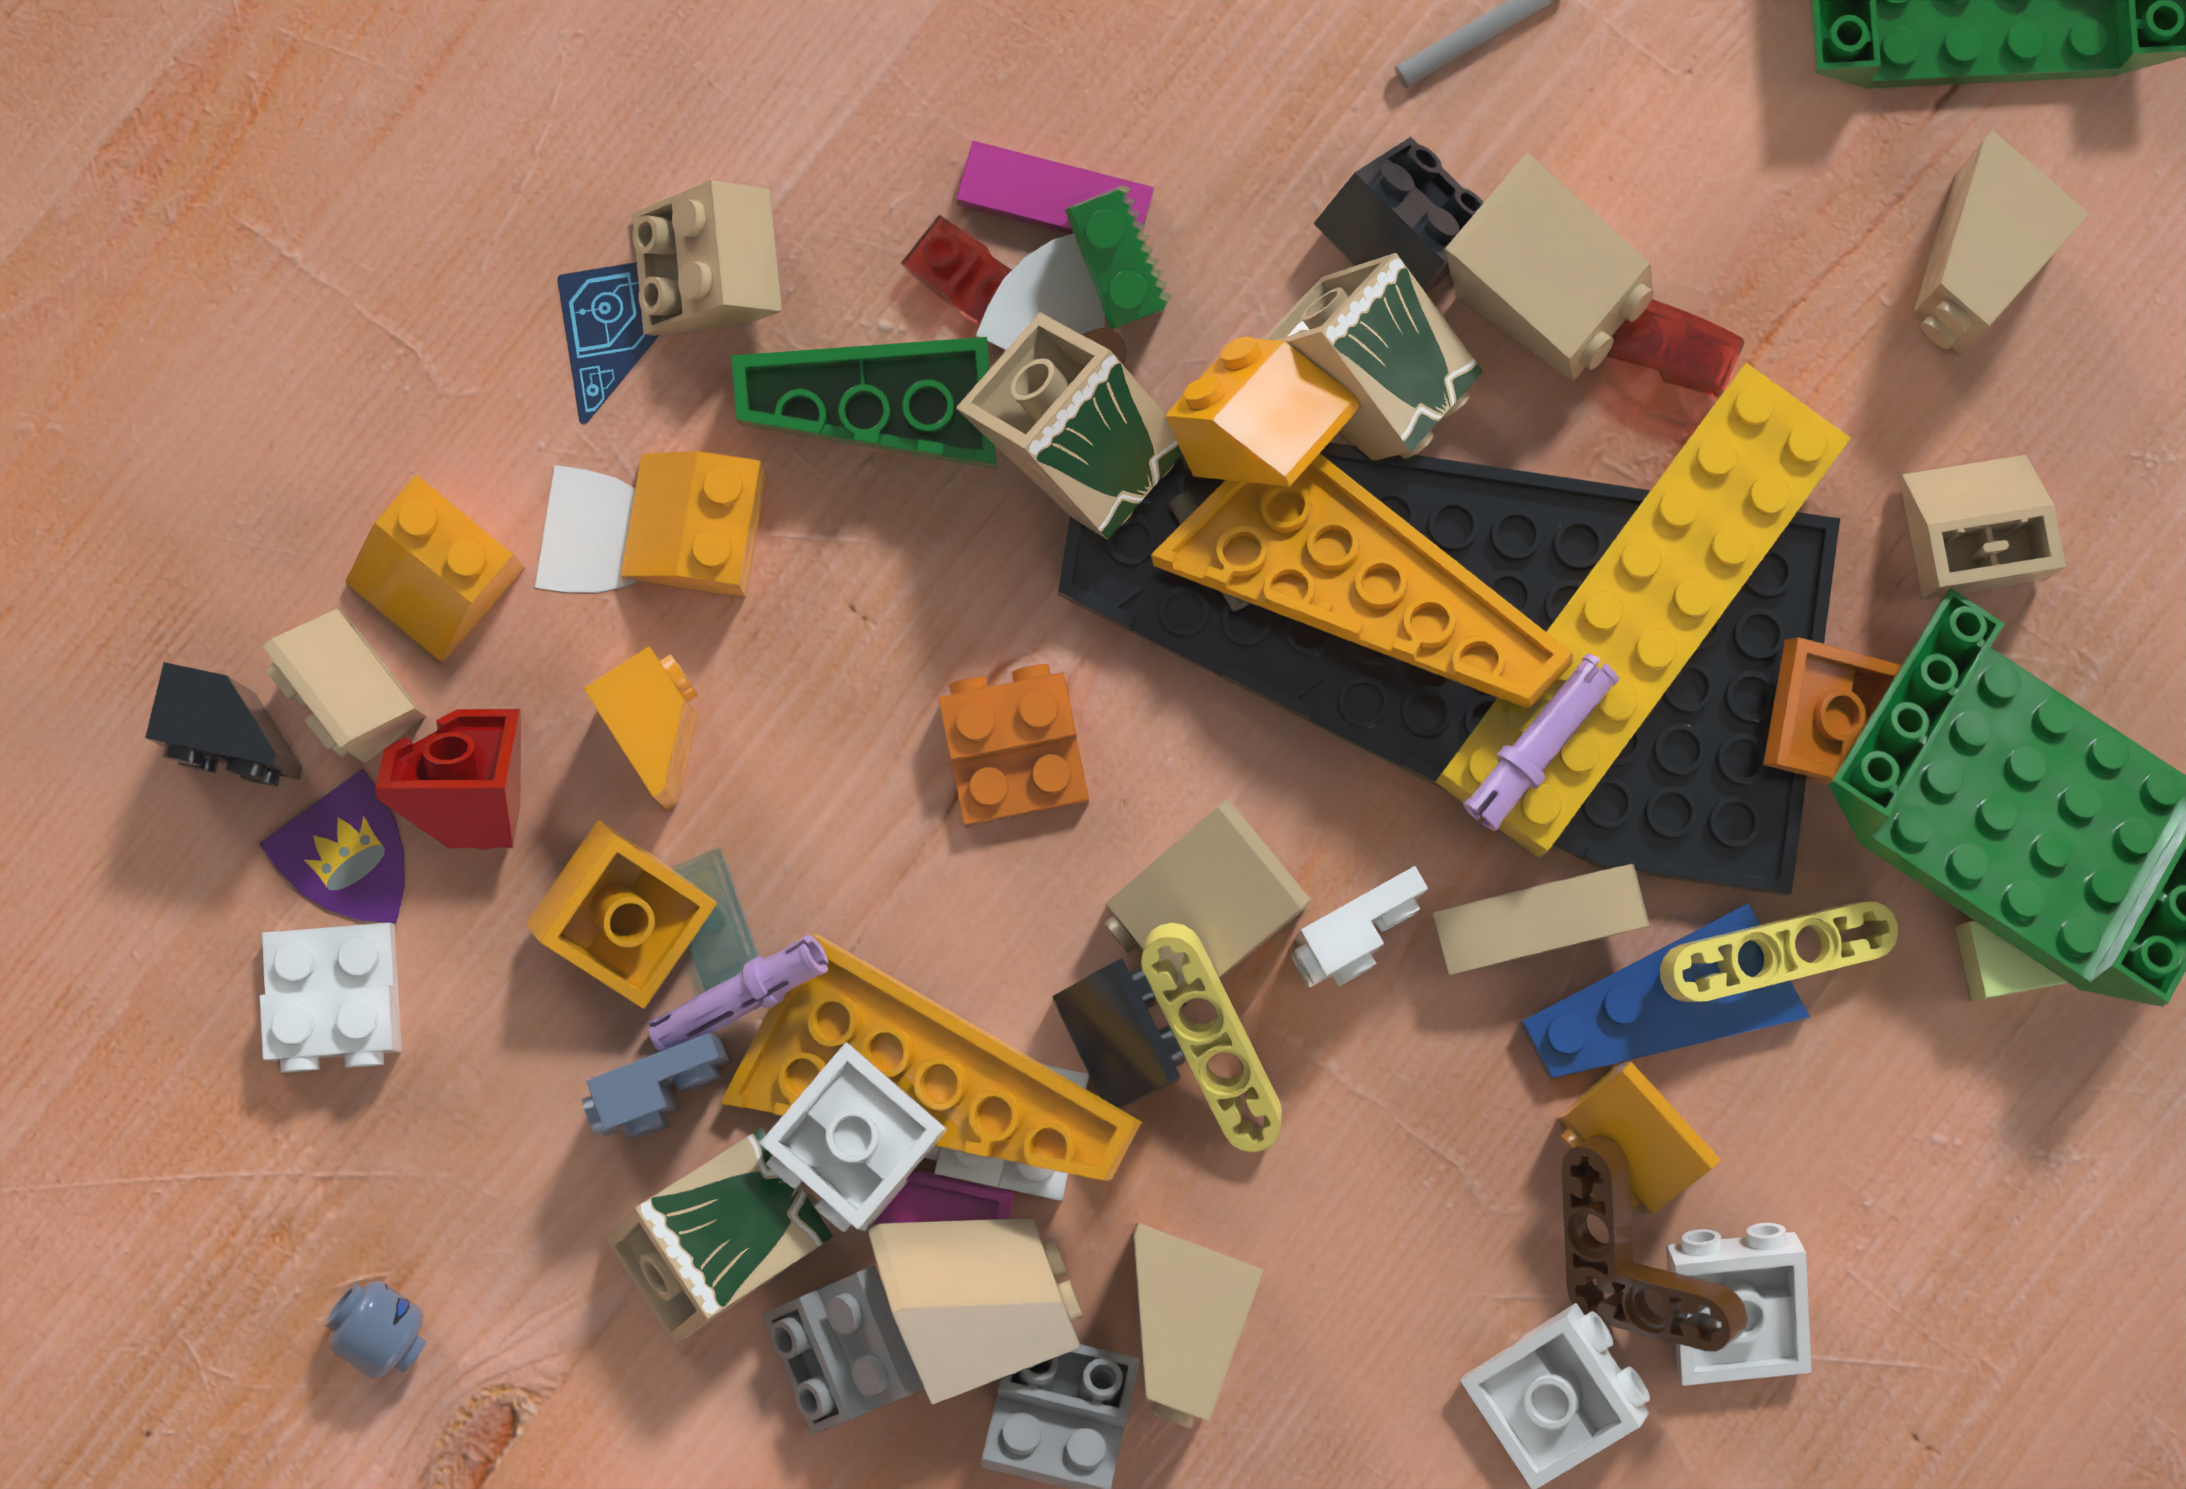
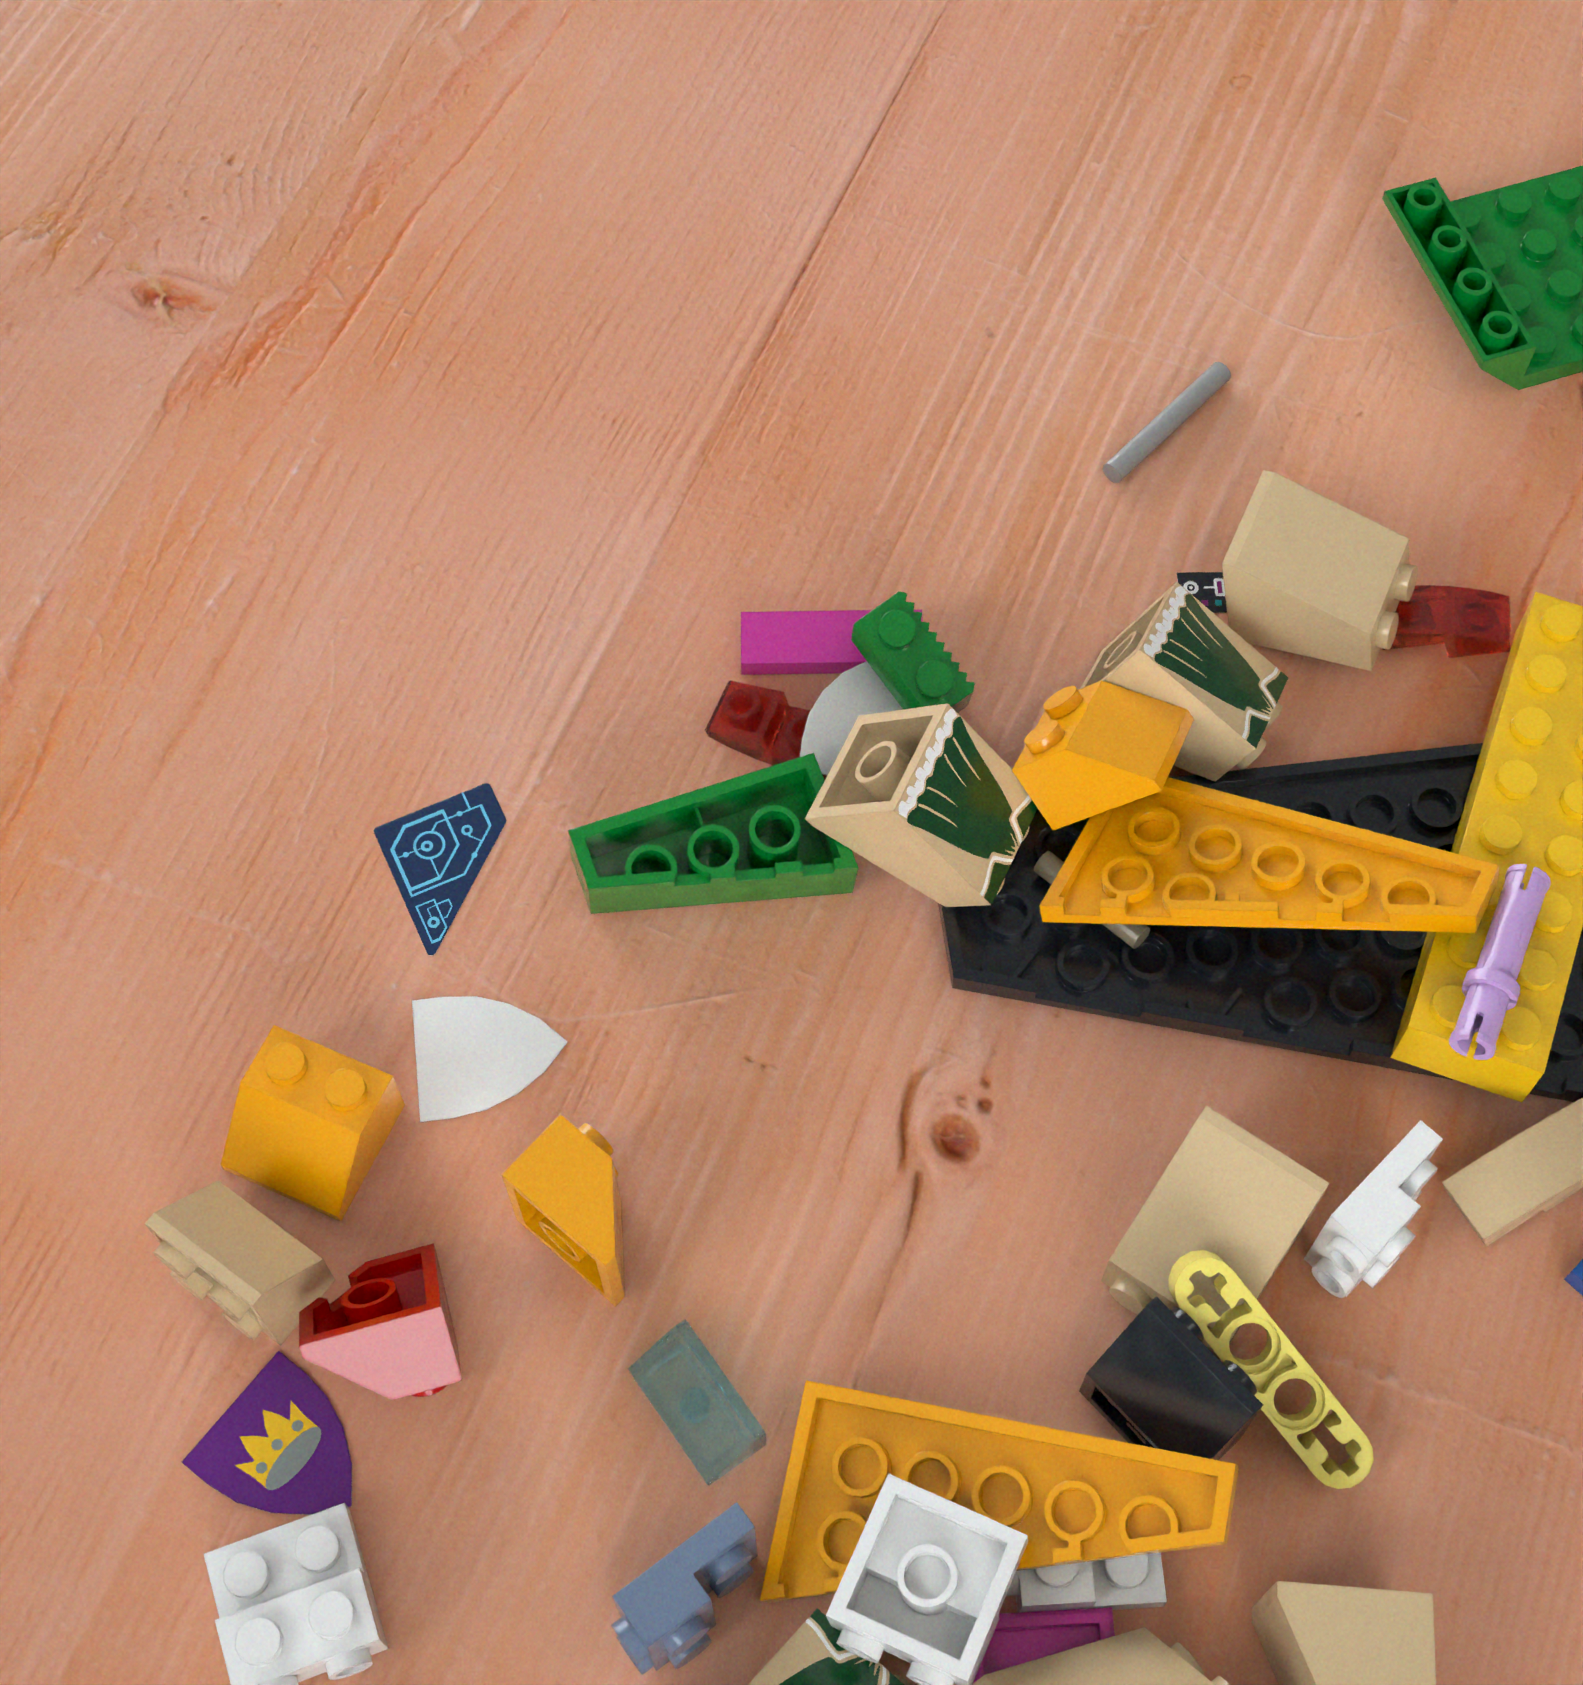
camera: 15 degrees left, 20 degrees down
(216, 720) = (109, 1336): black slope -> none
(620, 914) = (597, 1418): light orange slope -> none
(695, 521) = (568, 1009): light orange slope -> none
(706, 259) = (517, 770): tan slope -> none
(758, 985) = (769, 1449): lavender pin -> none
(1013, 745) = (955, 1140): orange plate -> none
(1400, 207) = (1146, 560): black slope -> none

